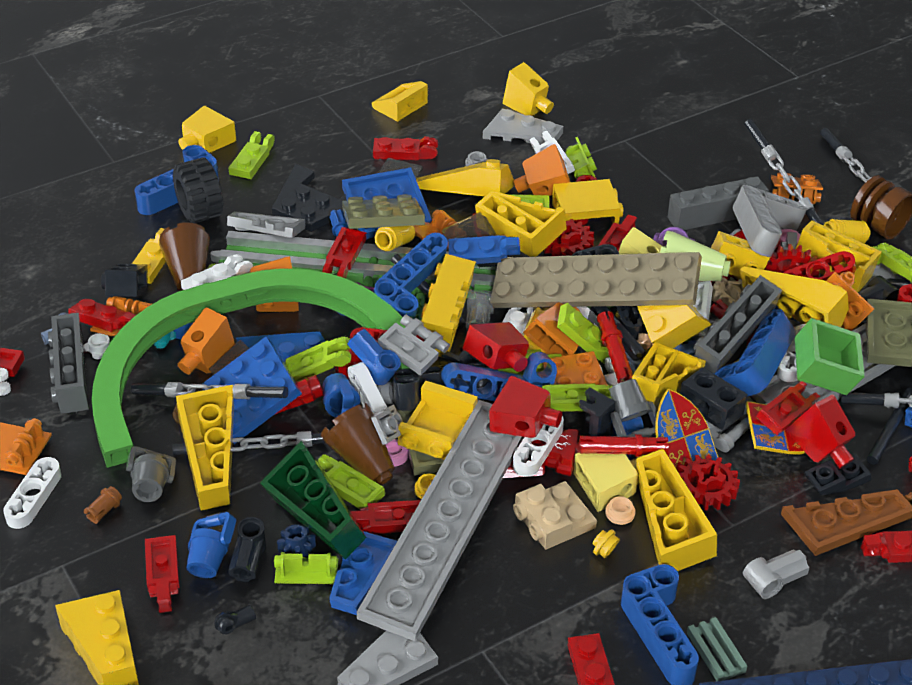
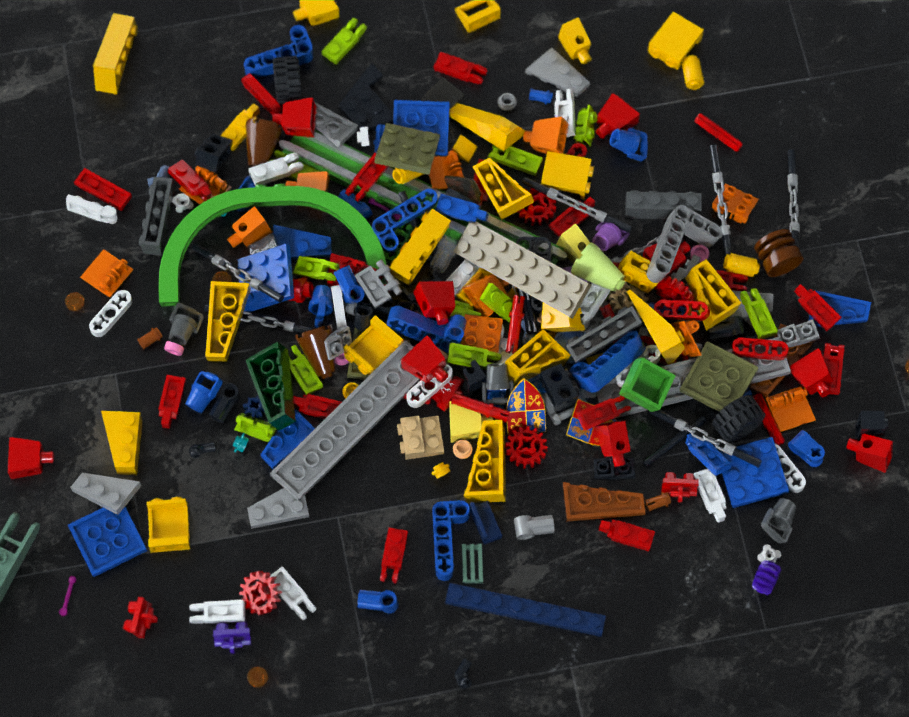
camera: 20 degrees right, 25 degrees up
(144, 505) = (174, 348): none -> bright pink tile
(154, 216) = (261, 94): none -> red beam
(227, 218) = (298, 117): none -> red torso
(291, 593) = (240, 443): none -> teal plate
(318, 225) = (362, 136): none -> white plate
(450, 208) = (464, 148): none -> yellow slope
(514, 148) = (541, 96): none -> blue pin
(613, 145) = (616, 115): none -> red torso
(636, 74) = (674, 40): none -> yellow panel
(642, 160) = (629, 142): none -> blue piece
(652, 225) = (553, 194): none -> piece
(672, 94) = (692, 72): none -> yellow head
(704, 590) = (485, 522): none -> dark blue panel
(728, 133) = (718, 132): none -> red axle

